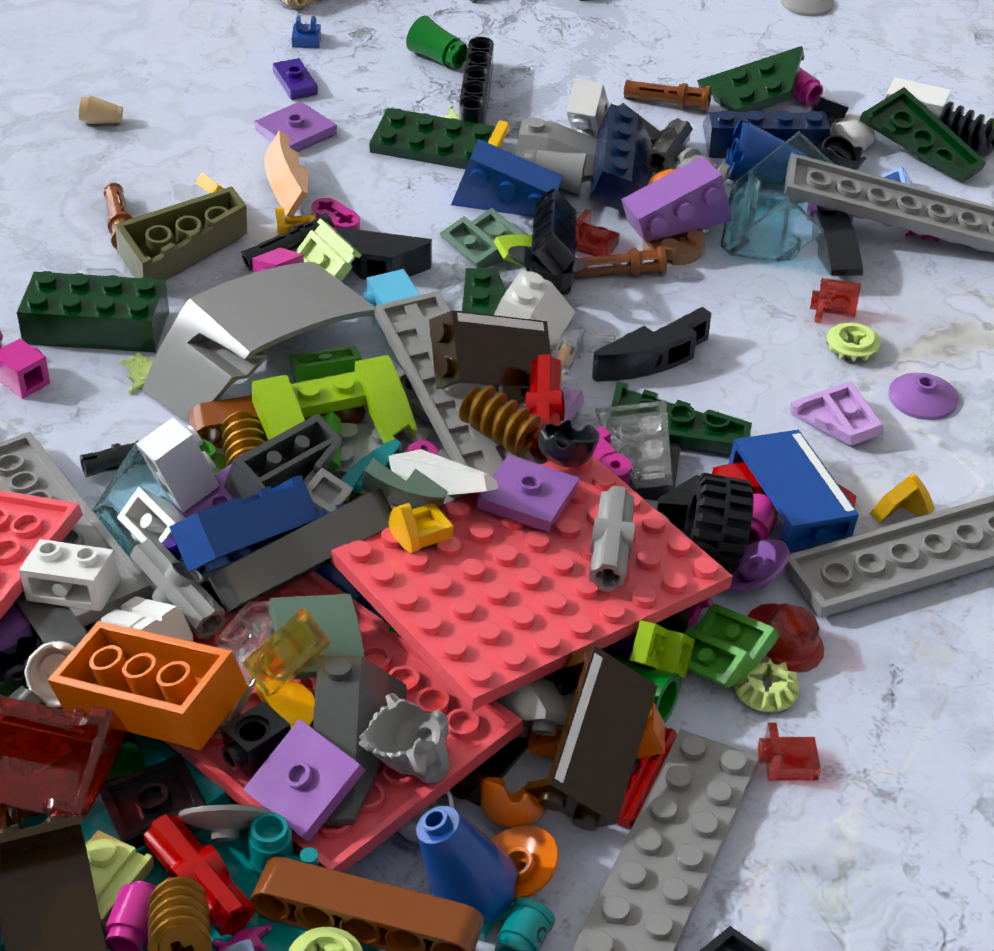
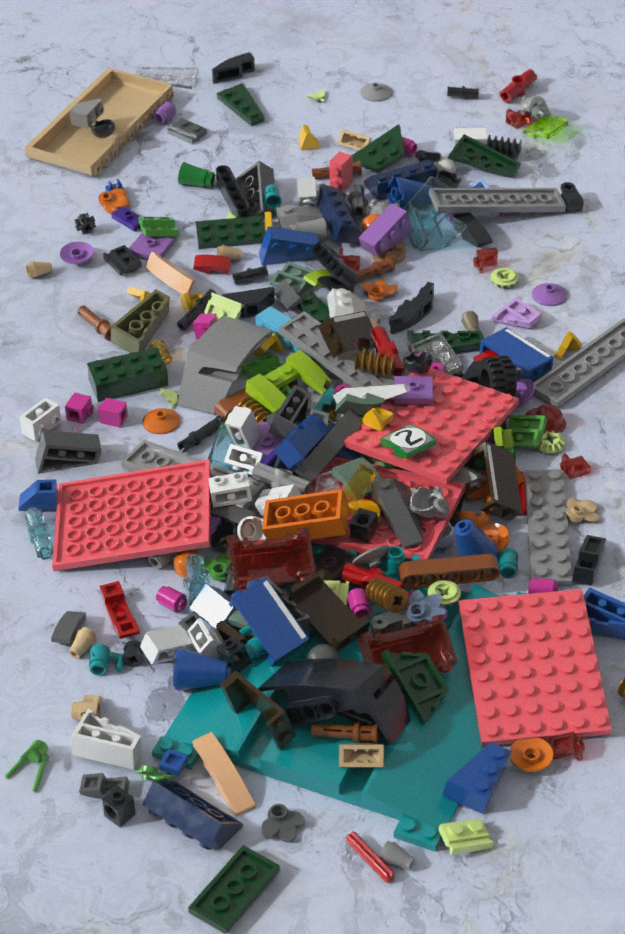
camera: 20 degrees left, 0 degrees up
(95, 409) = (161, 421): none -> orange dish
(173, 104) = (76, 252): none -> medium lavender dish
(180, 287) = (167, 358): none -> clear yellow cone
(219, 66) = (85, 223): none -> black gear
(235, 134) = (122, 260): none -> black plate
(292, 45) = (113, 200): none -> orange plate
(304, 779) = (396, 529): medium lavender plate -> none
(326, 100) = (158, 226): none -> bright green slope
(339, 213) = (204, 286): dark pink beam -> none
(360, 173) = (207, 262): none -> red slope
(363, 329) = (271, 342): none -> yellow tile
(404, 169) = (233, 253): none -> tan cone
(416, 212) = (250, 274): none -> black pin
(441, 593) = (408, 441): none -> slope
(450, 262) = (287, 295): none -> dark grey slope
(521, 81) = (253, 184): none -> dark grey wedge
(529, 100) = (273, 197): none -> teal piece
(612, 539) = (463, 397): light grey piece -> none
(613, 299) = (379, 289): none -> orange plate
(650, 39) = (307, 140): none -> yellow tile
(666, 93) = (341, 171): none -> coral brick
(722, 55) = (353, 140): none -> tan slope
(744, 399) = (470, 321): none -> dark tan cone
(751, 862) = (581, 510): none -> tan plate
(947, 33) = (463, 92): none -> black pin

